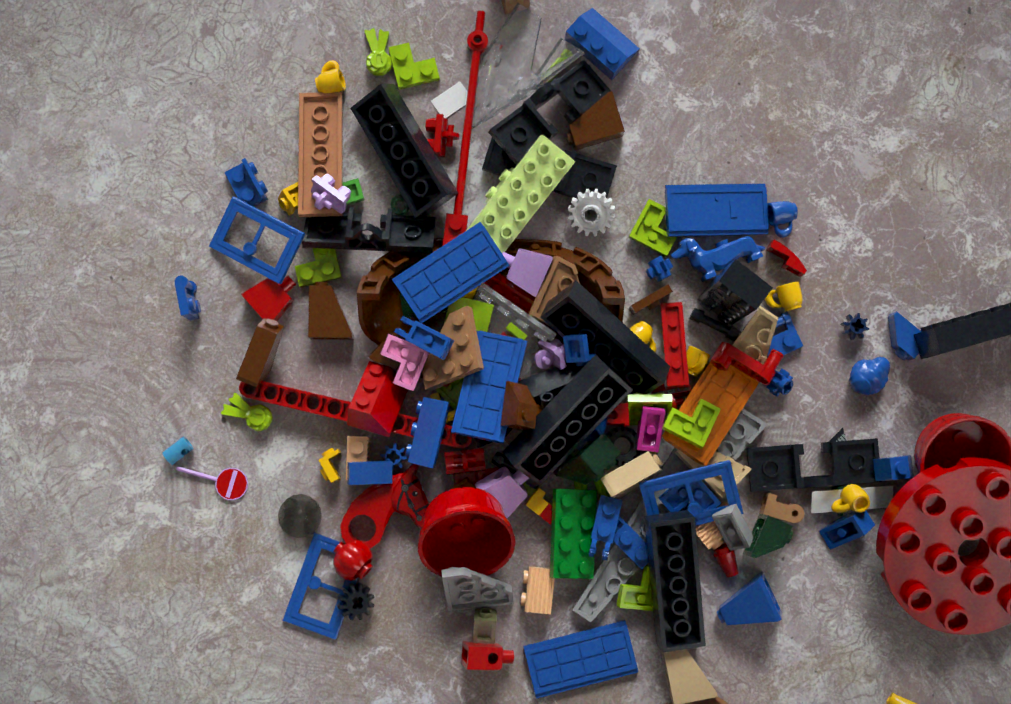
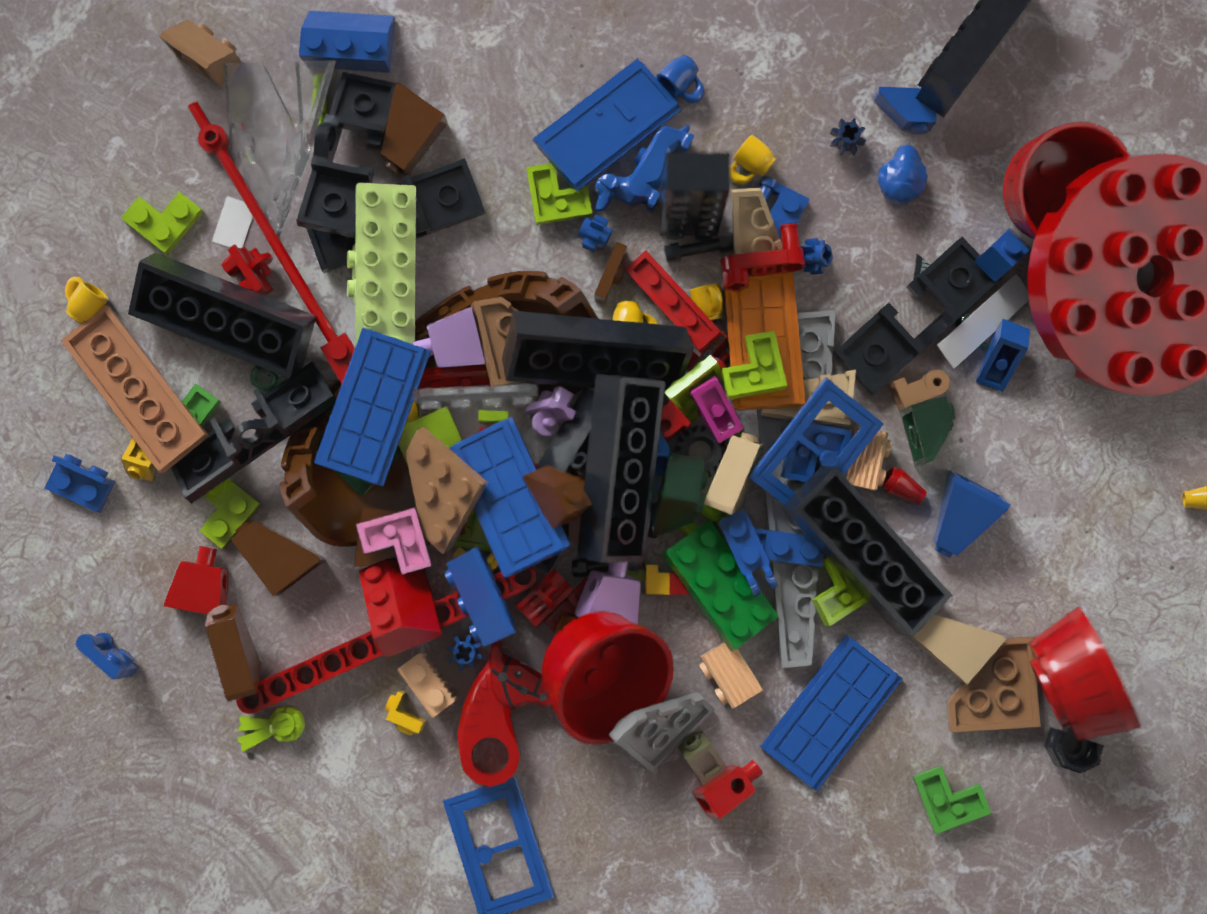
camera: 30 degrees left, 0 degrees up
(177, 450) = (225, 828): dark azure piece -> none
(229, 483) = (310, 820): piece -> none
(245, 257) = (135, 549): blue door -> none
(310, 516) = (424, 786): clear smoke plate -> none
(327, 195) = (173, 426): lavender hips -> none
(349, 607) = (543, 851): black gear -> none
(352, 560) = (506, 798): red plant -> none
(369, 472) = (451, 689): blue tile -> none
(378, 61) = (121, 241): lime piece -> none
(426, 338) = (400, 497): blue hinge -> none
(577, 349) = (572, 384): blue bracket -> none
(587, 222) = (471, 213): white gear -> none
(733, 527) = (884, 447): light grey slope -> none
(791, 263) = (729, 119): red slope -> none
(853, 499) = (985, 319): yellow piece -> none

